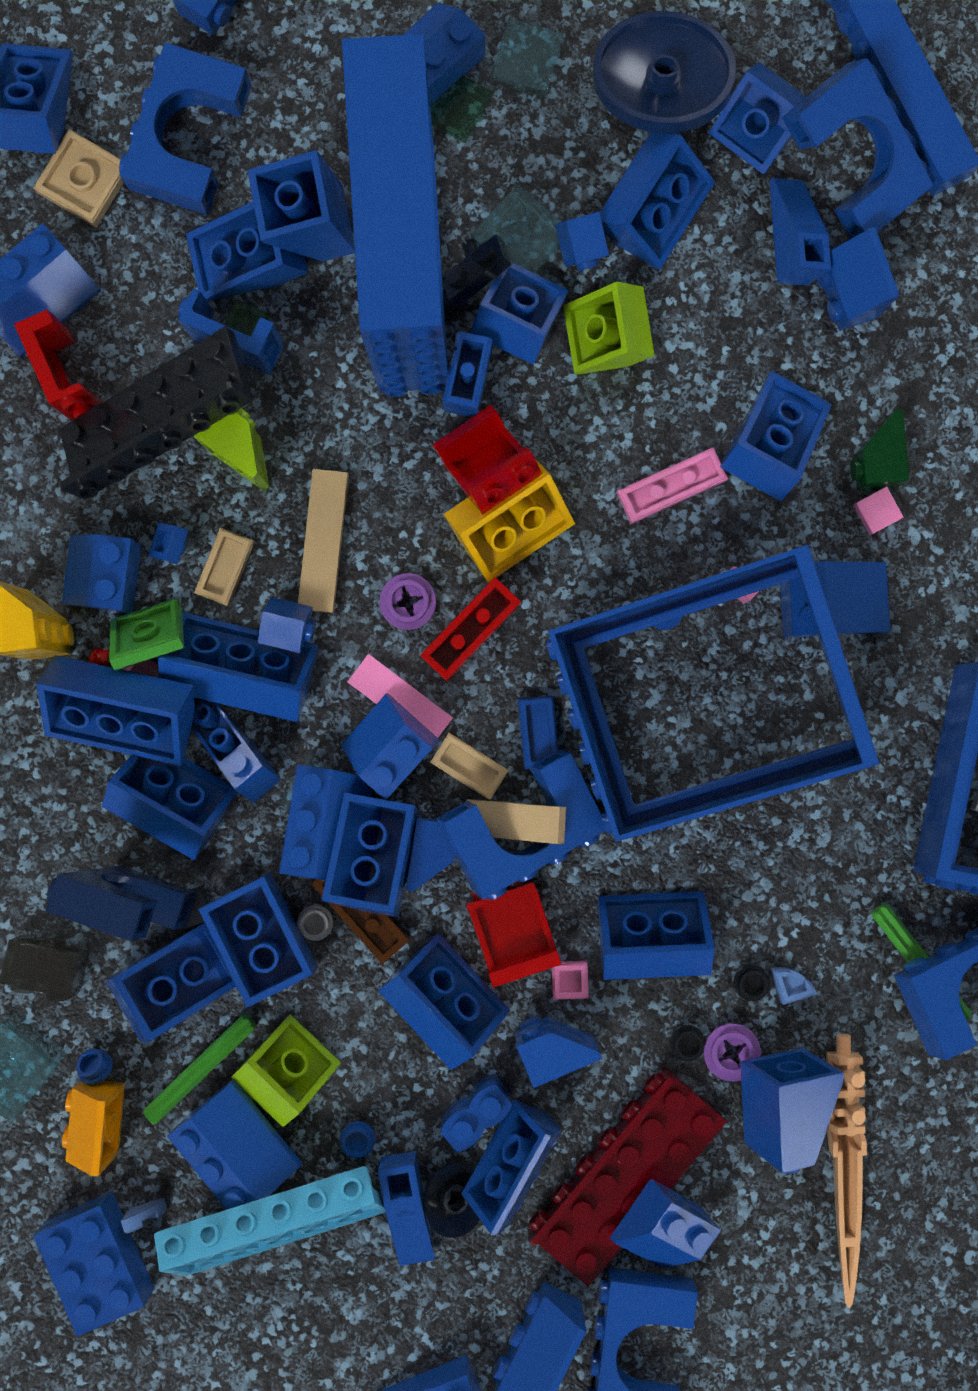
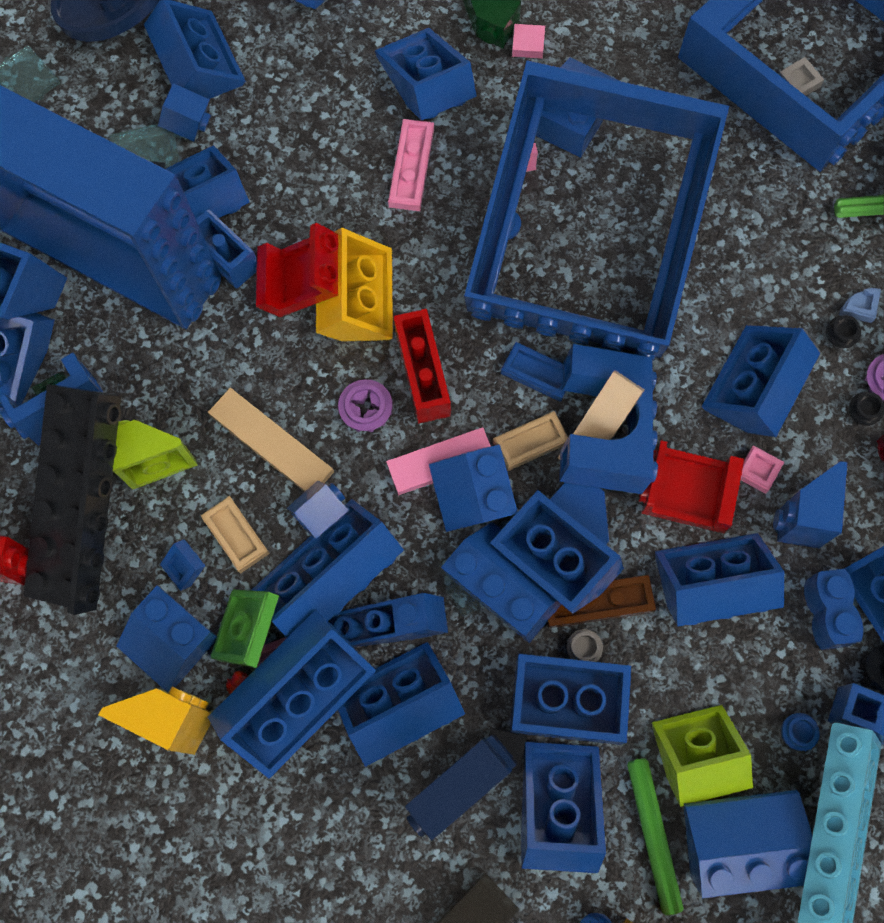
camera: 55 degrees left, 15 degrees down
(609, 328) = (262, 136): lime slope -> none

